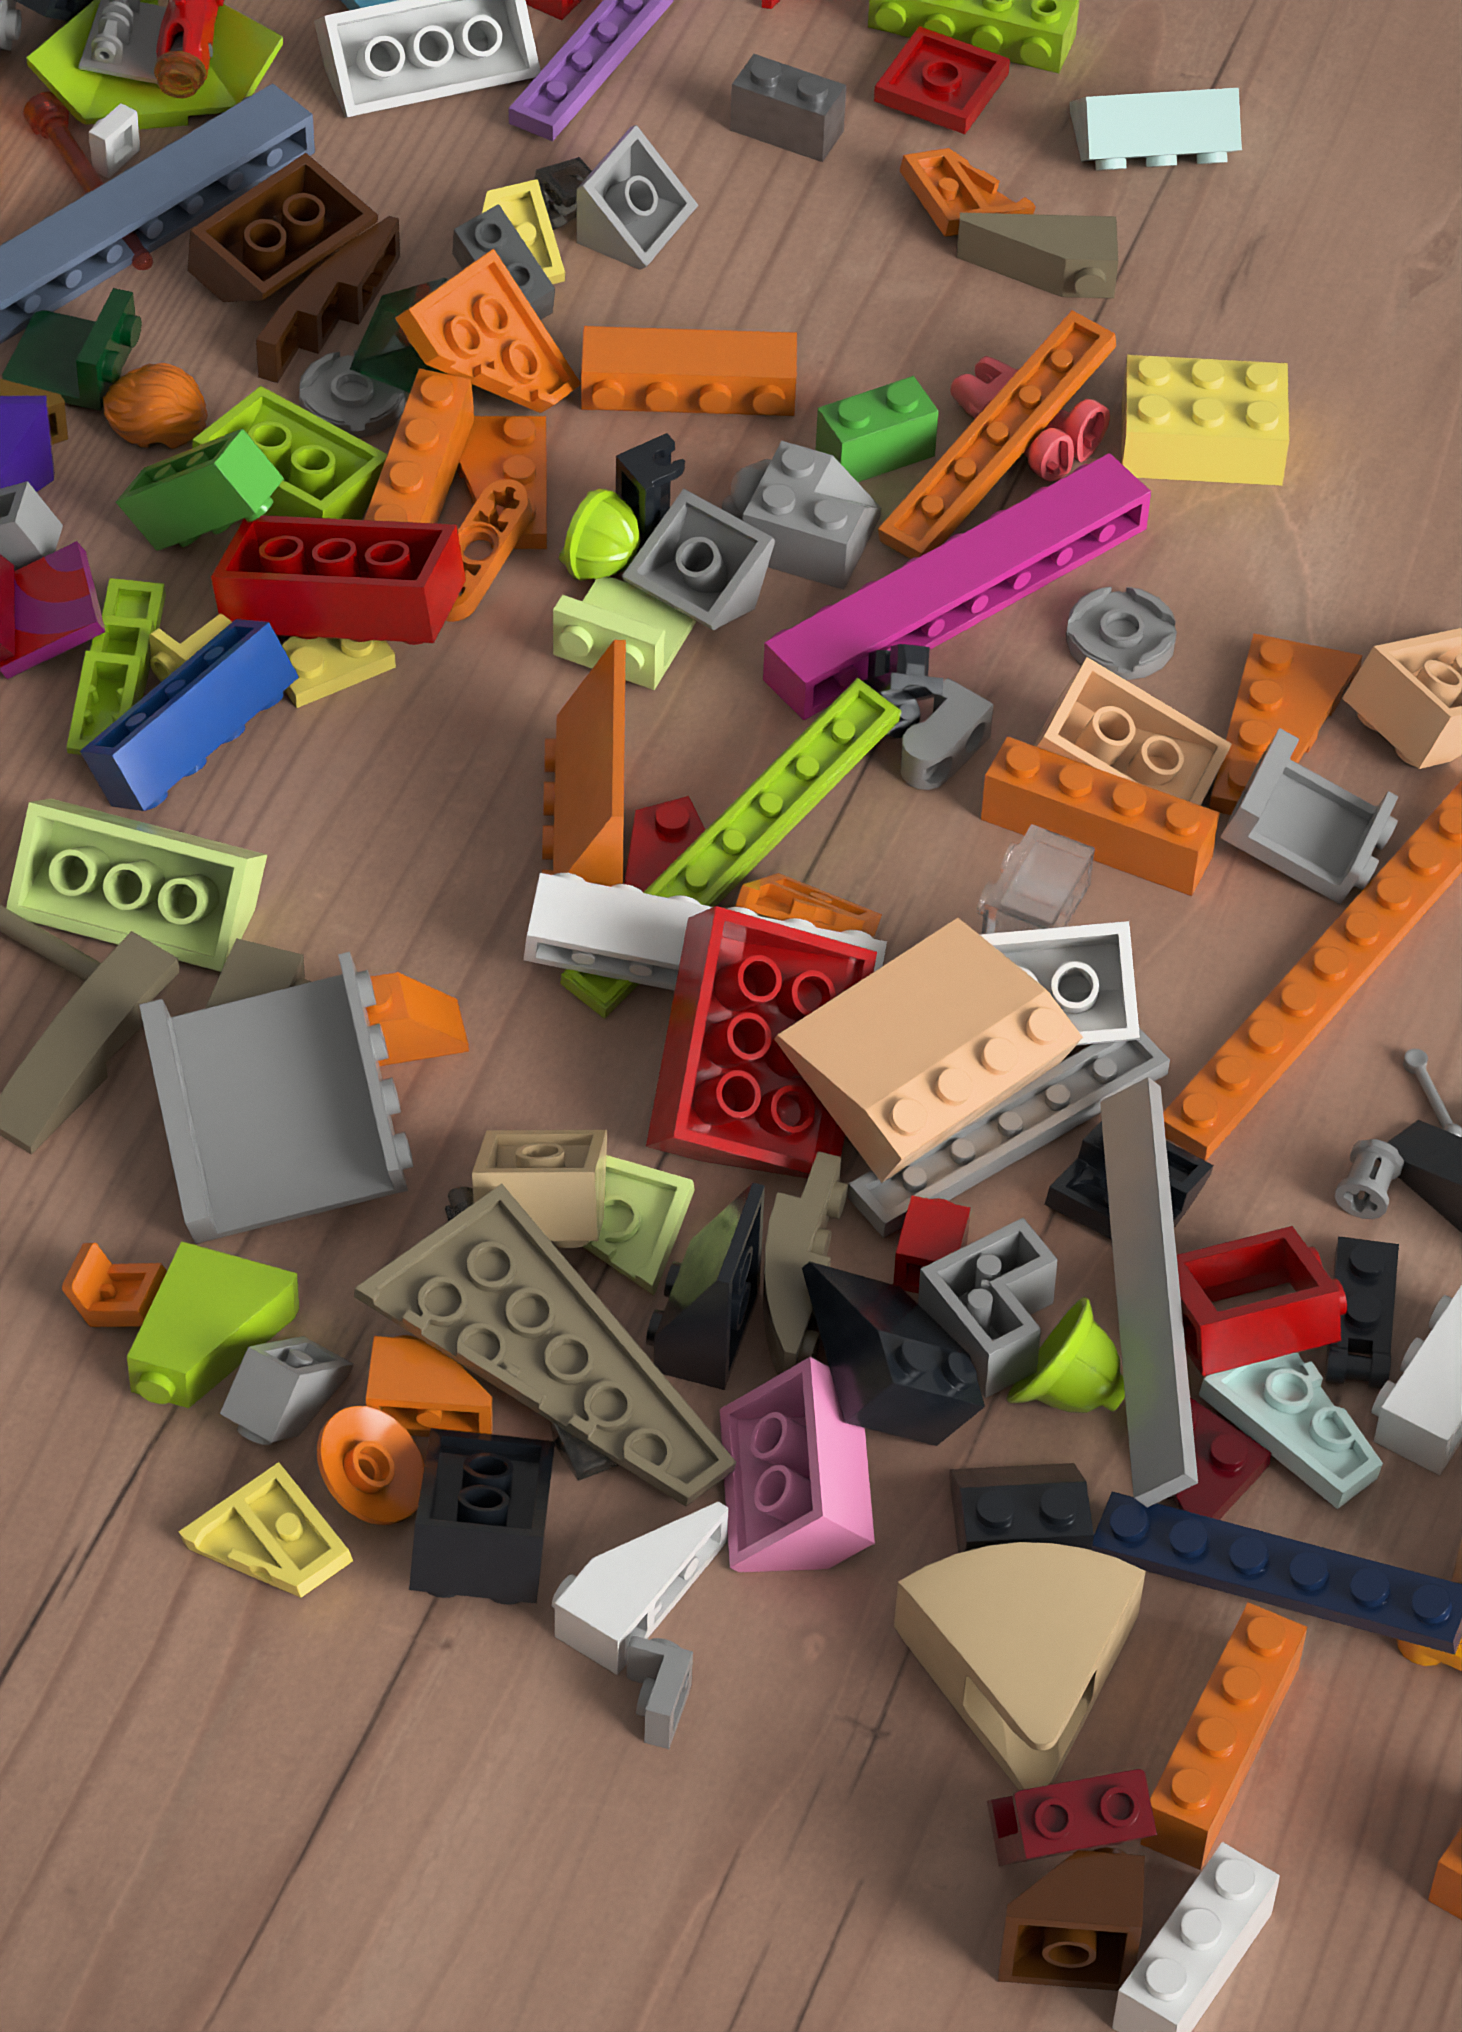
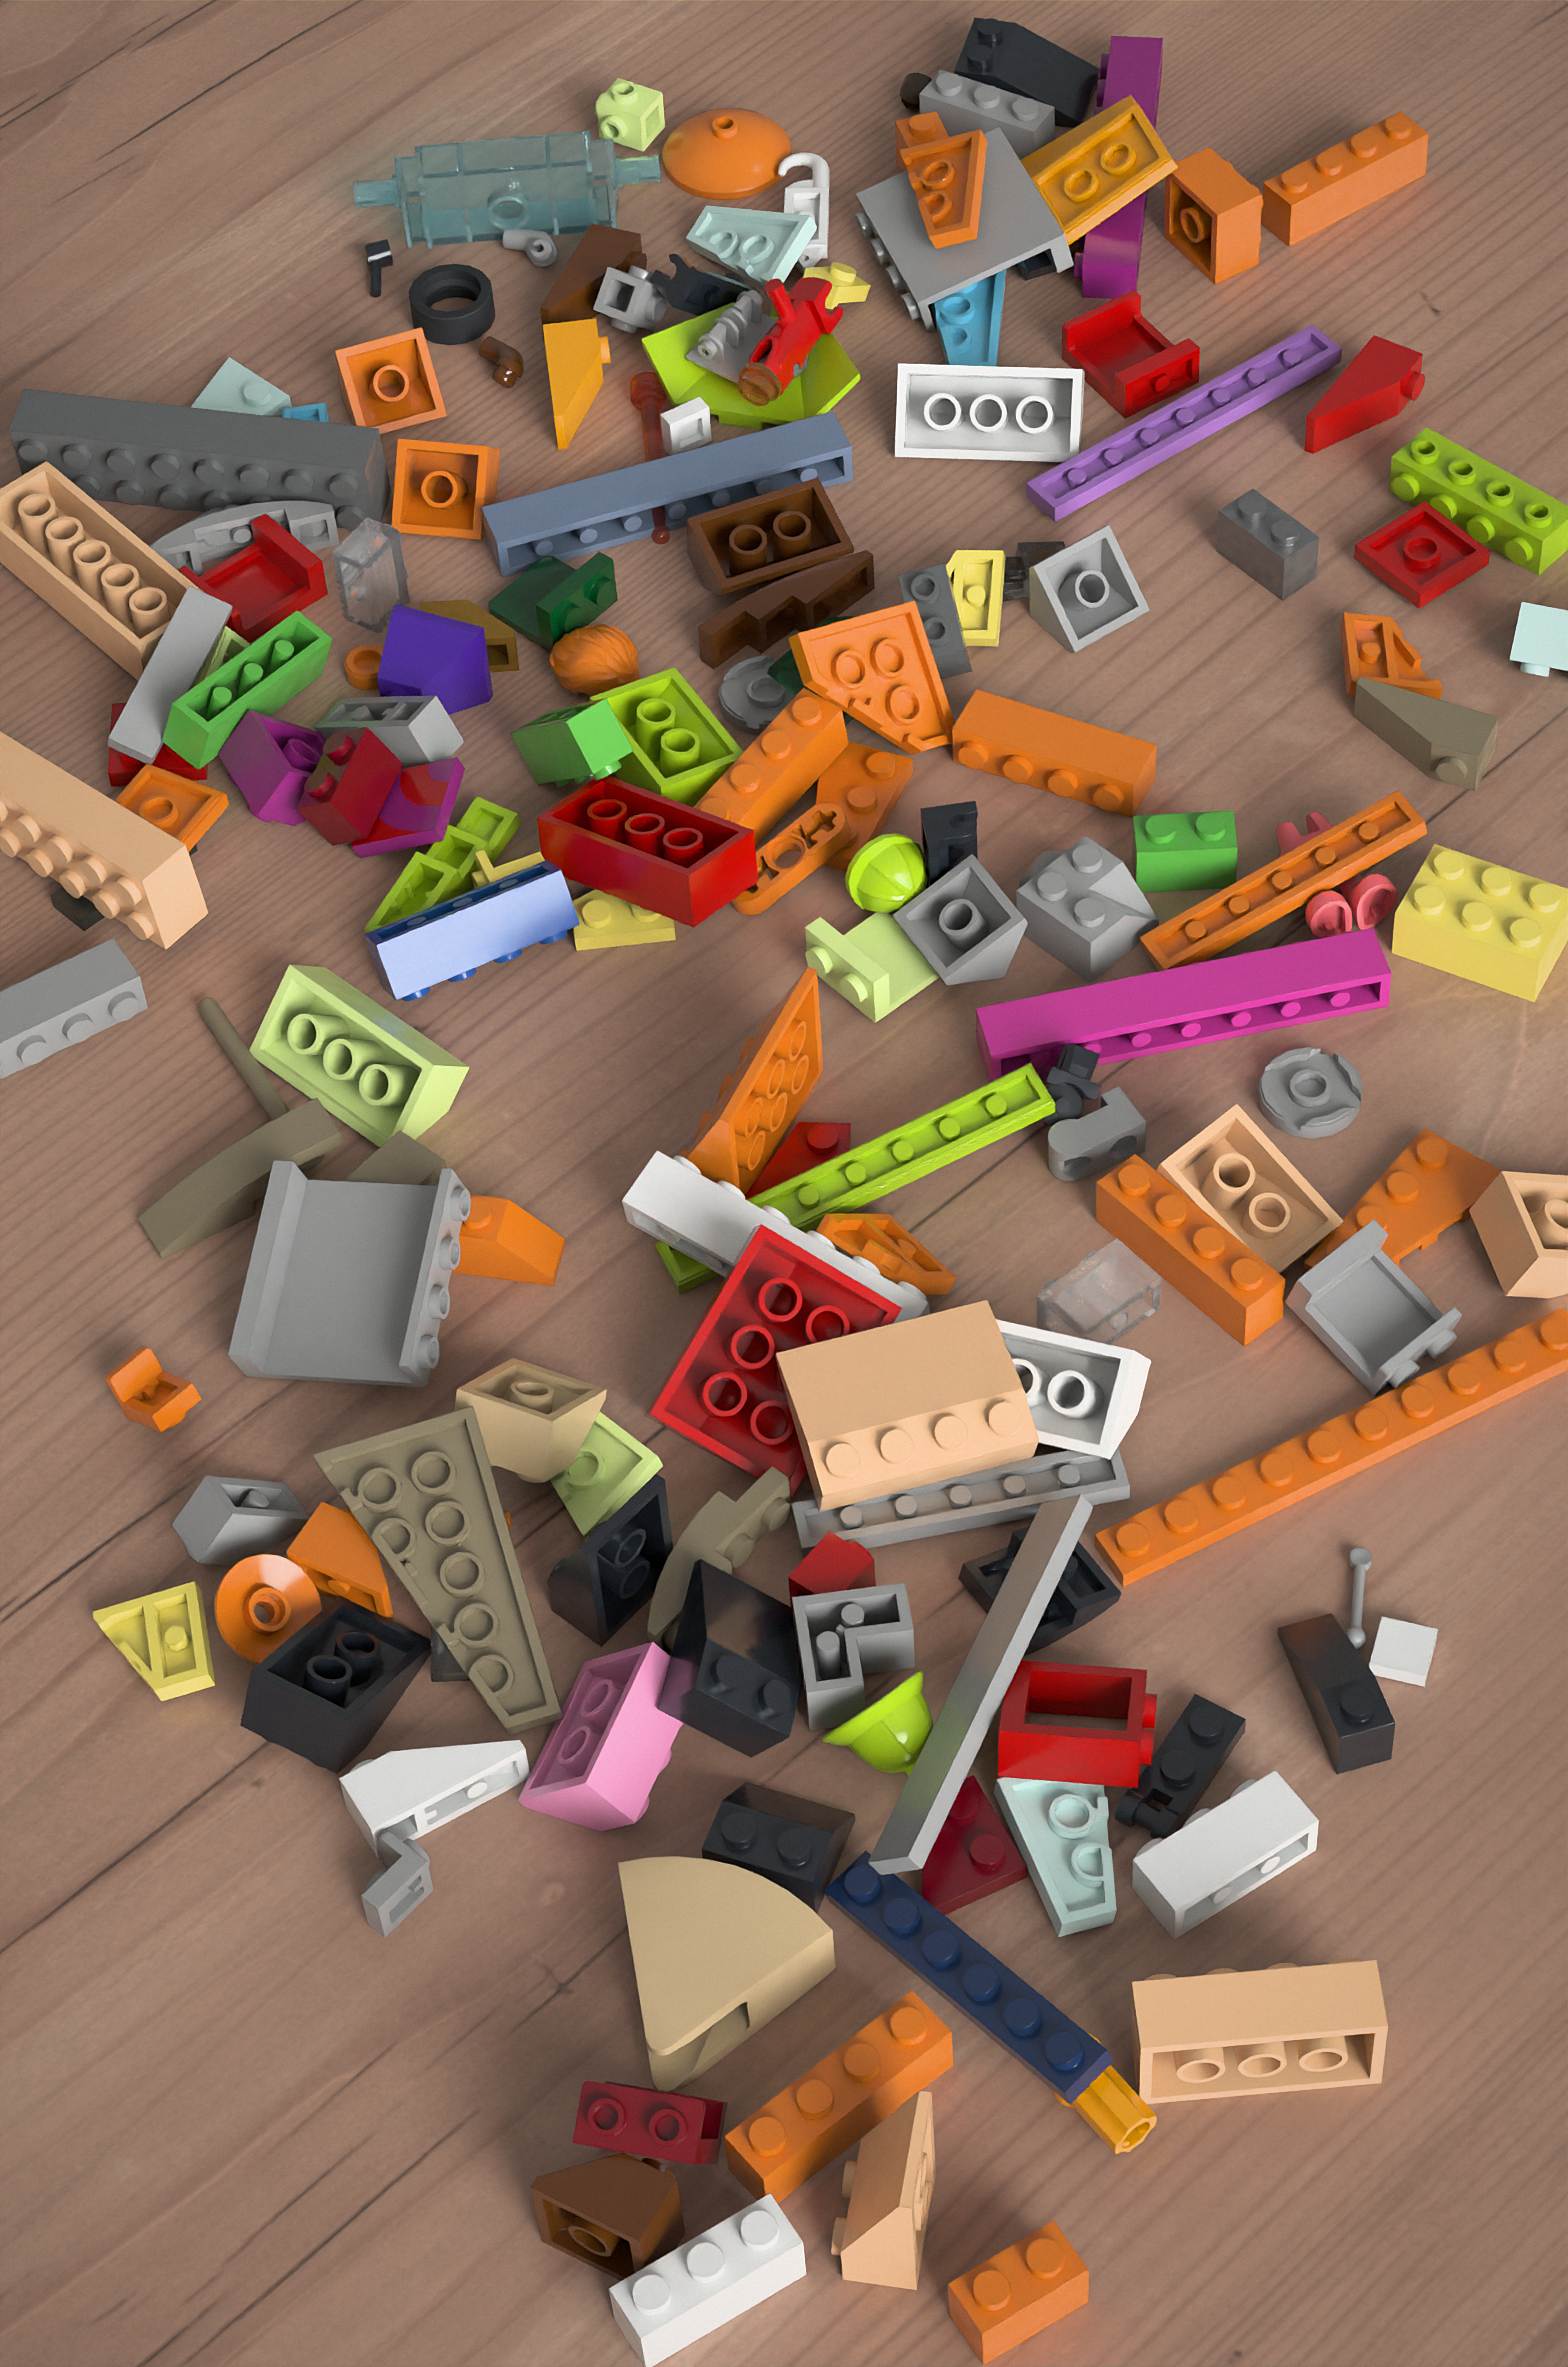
camera: 30 degrees right, 0 degrees up
(205, 1322) = (206, 1434): lime slope -> none
(1338, 1799) = (889, 2198): none -> light nougat slope
(1369, 1178) = (1251, 1651): light grey bush -> none

